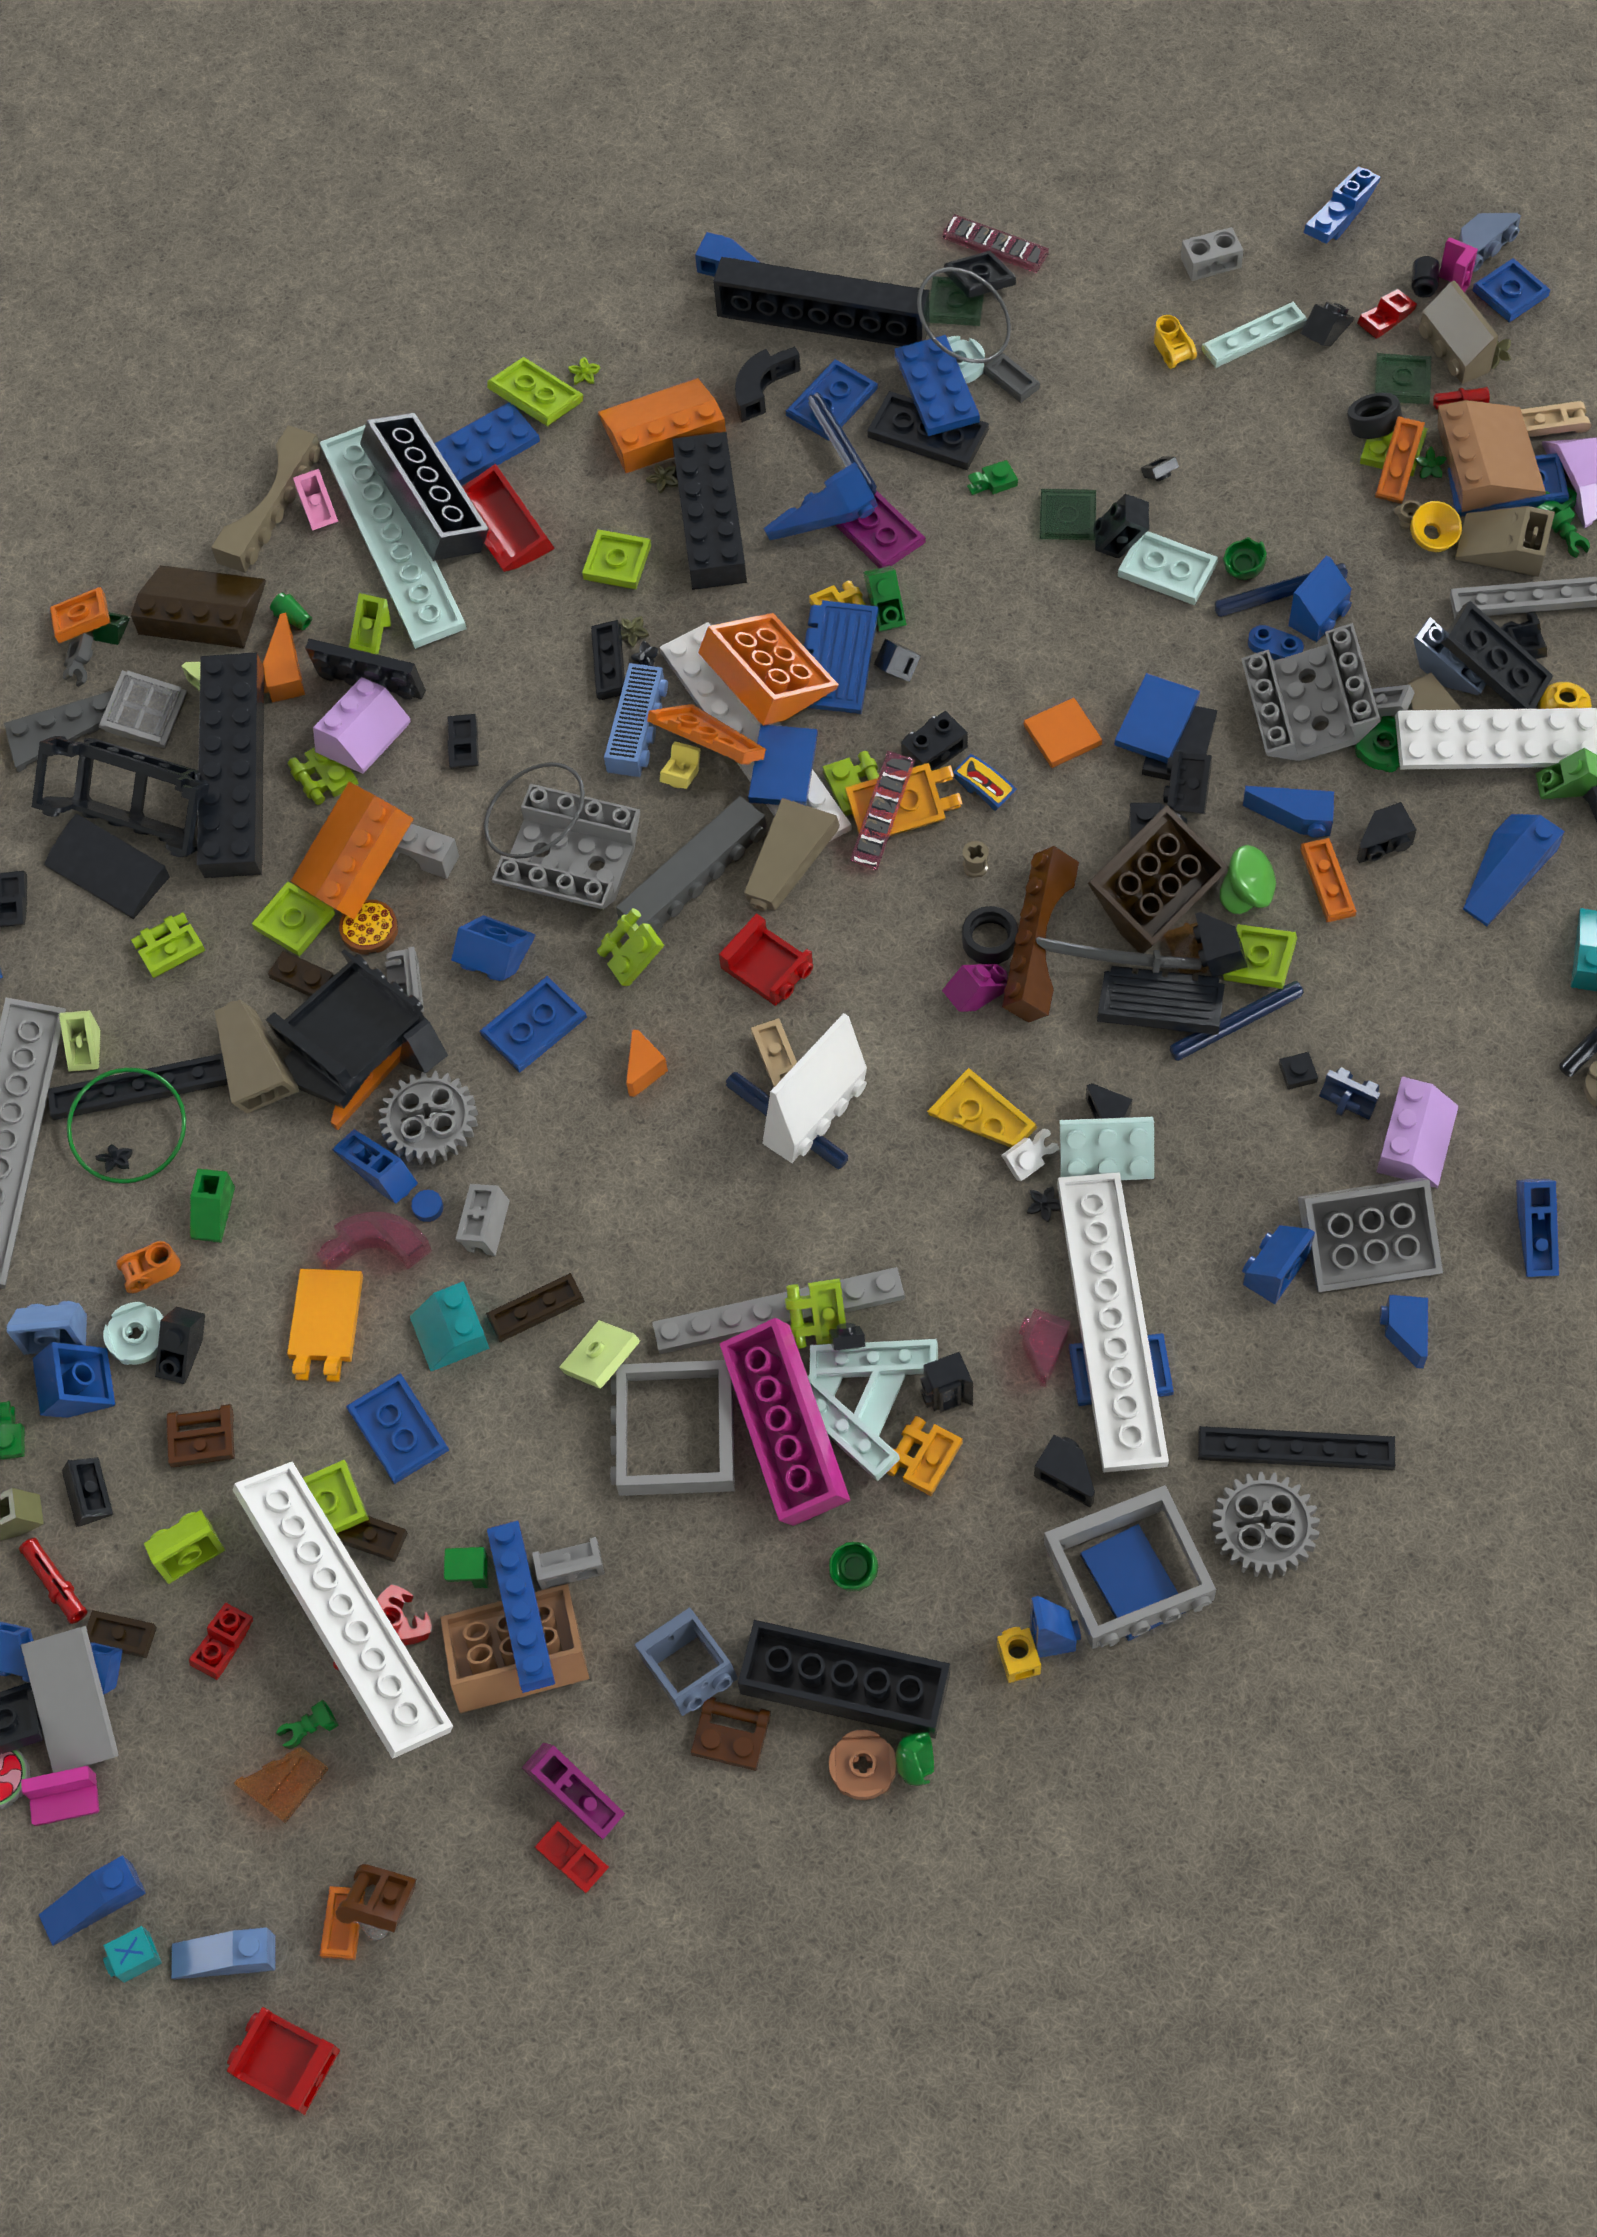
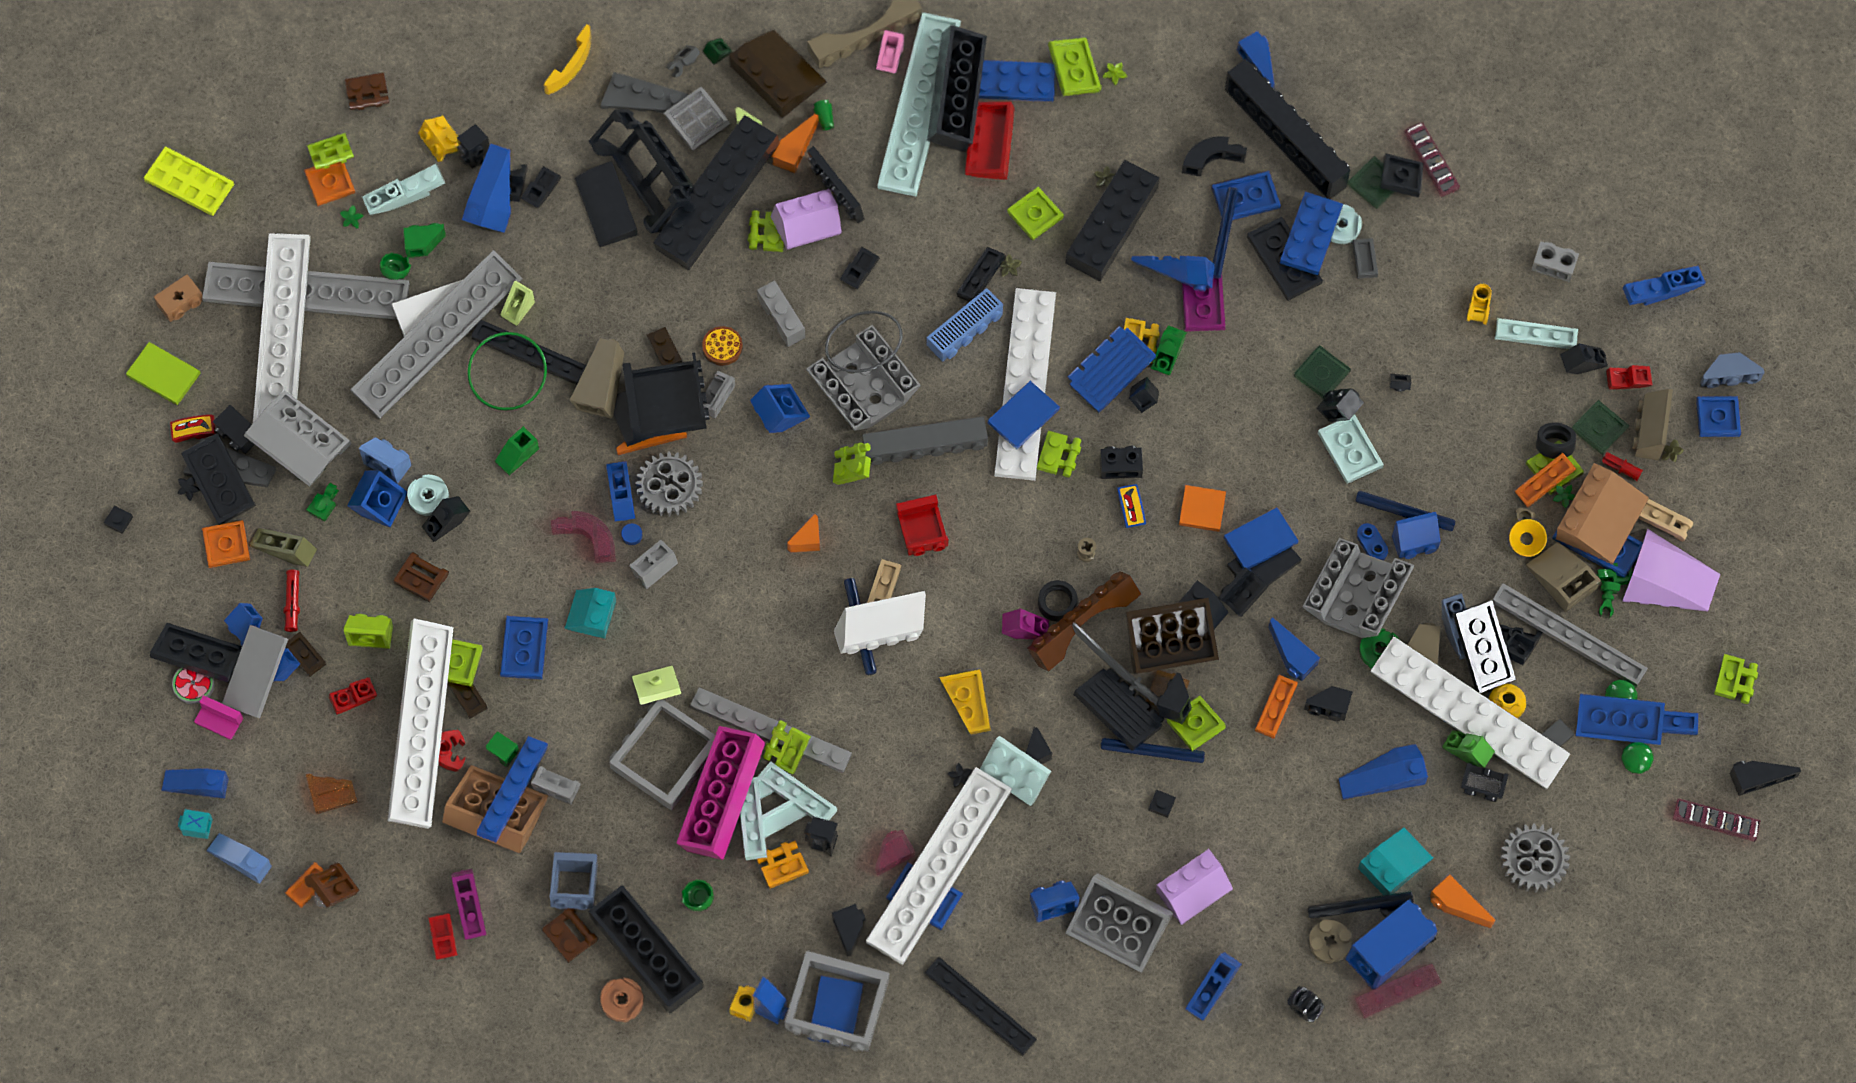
camera: 30 degrees right, 5 degrees up
(79, 615) = (703, 32): orange tile -> none
(86, 1490) = (343, 564): black slope -> none
(115, 1158) = (488, 385): black plant -> none
(146, 1267) = (457, 460): orange piece -> none
(170, 950) = (605, 282): lime plate -> none
(282, 2060) = (230, 930): red panel -> none
(293, 918) = (684, 311): lime plate -> none
(321, 1716) = (373, 772): green piece -> none
(324, 1321) = (530, 560): light orange tile -> none
(352, 850) = (742, 295): orange slope -> none
(368, 624) = (860, 155): lime slope -> none
(422, 1047) = (693, 442): black slope -> none
(533, 1024) = (767, 469): blue tile -> none
(535, 1307) = (645, 633): dark brown tile -> none
(645, 426) = (1132, 138): orange slope -> none
(646, 654) = (1002, 288): black plant -> none
(682, 766) = (968, 373): light yellow bracket -> none
(707, 731) = (996, 363): orange wing -> none
(765, 667) = (1061, 347): orange slope -> none
(788, 851) = (984, 469): dark tan slope -> none
(846, 1336) = (791, 771): black plate -> none
(882, 810) = (1056, 483): tile -> none
(915, 1758) = (649, 1016): green hair -> none
(919, 803) = (1072, 484): light orange tile -> none
(949, 269) = (1397, 197): dark grey piece -> none
(995, 477) = (1299, 318): green plate -> none
(1026, 1155) = (970, 742): white plate -> none
(1245, 559) = (1398, 477): green hair -> none
(1248, 881) = (1228, 674): bright green piece -> none
(1261, 1496) = (939, 1017): light grey gear -> none
(1350, 1095) = (1174, 837): dark blue hips -> none
(1393, 699) = (1400, 624): light grey plate -> none
(1407, 1326) = (1094, 985): blue slope -> none
(1425, 276) = (1673, 369): black brick -> none
(1458, 263) = (1693, 382): dark pink panel -> none

